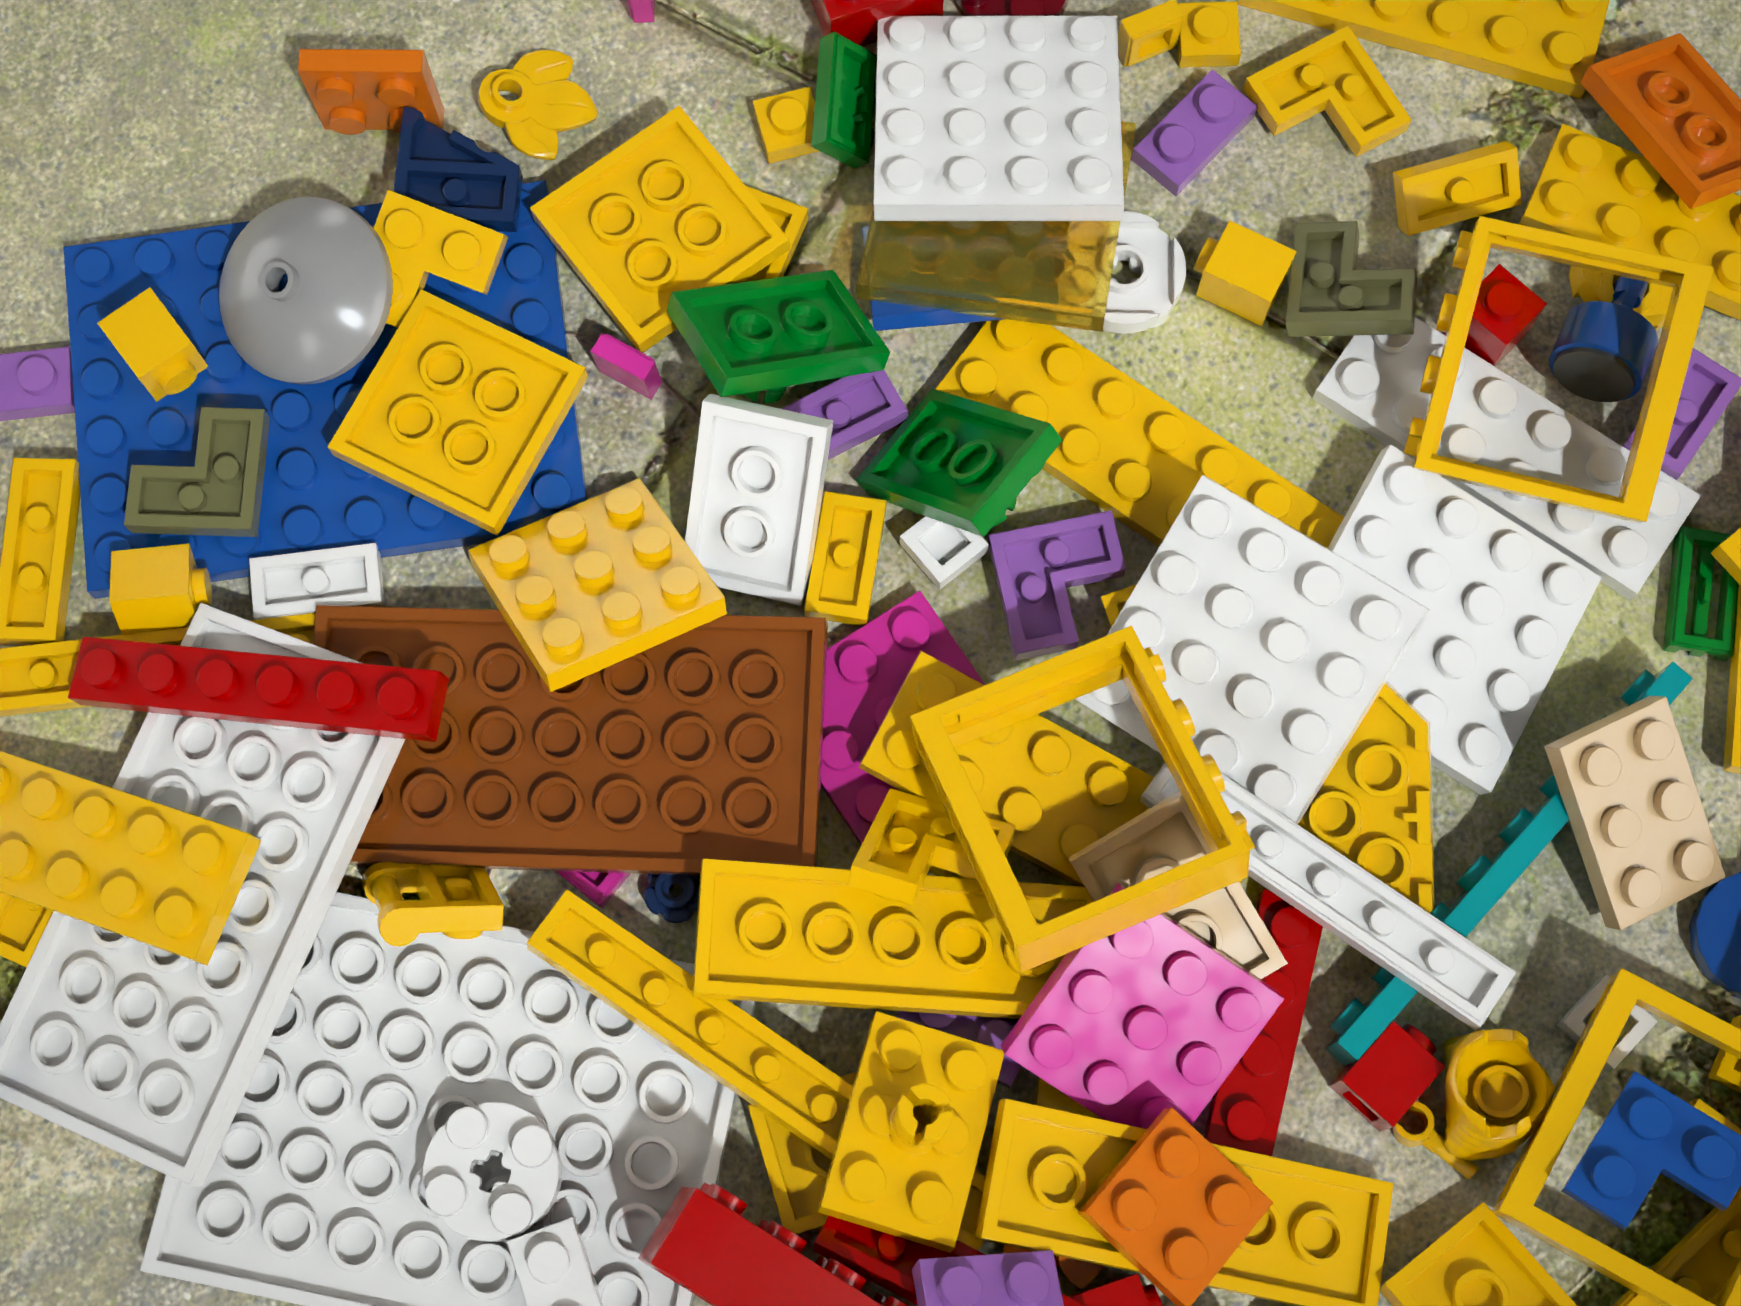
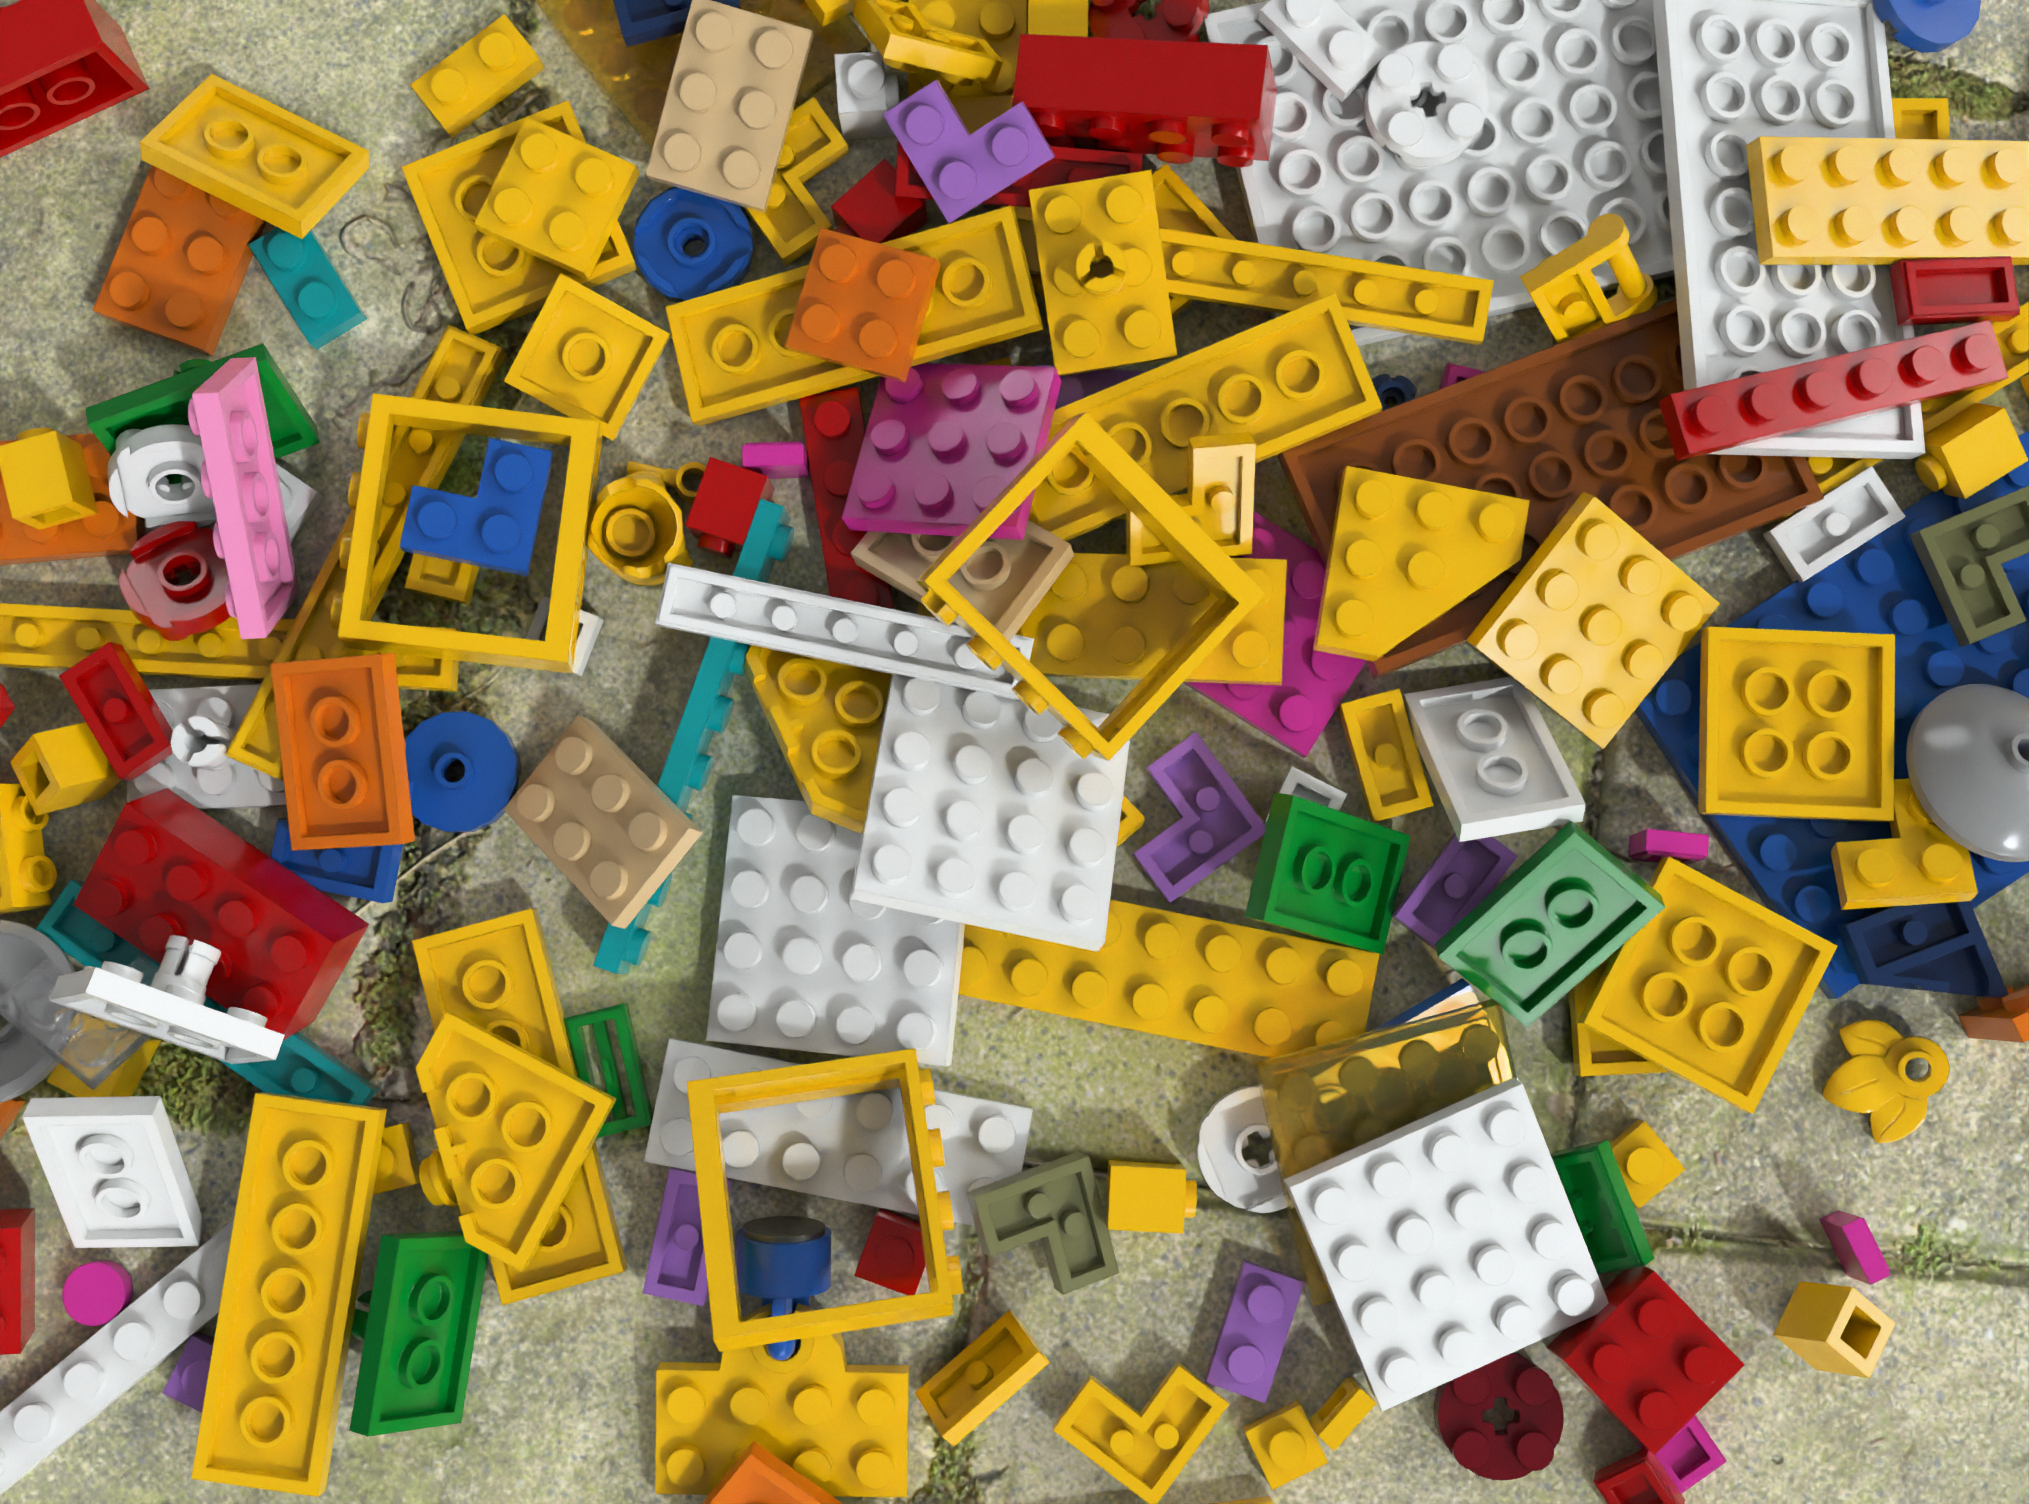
camera: 155 degrees right, 10 degrees up
(83, 743) = (1954, 290): none -> red tile
(744, 710) = (1408, 556): none -> yellow plate
(1321, 1103) = (776, 459): none -> dark pink tile

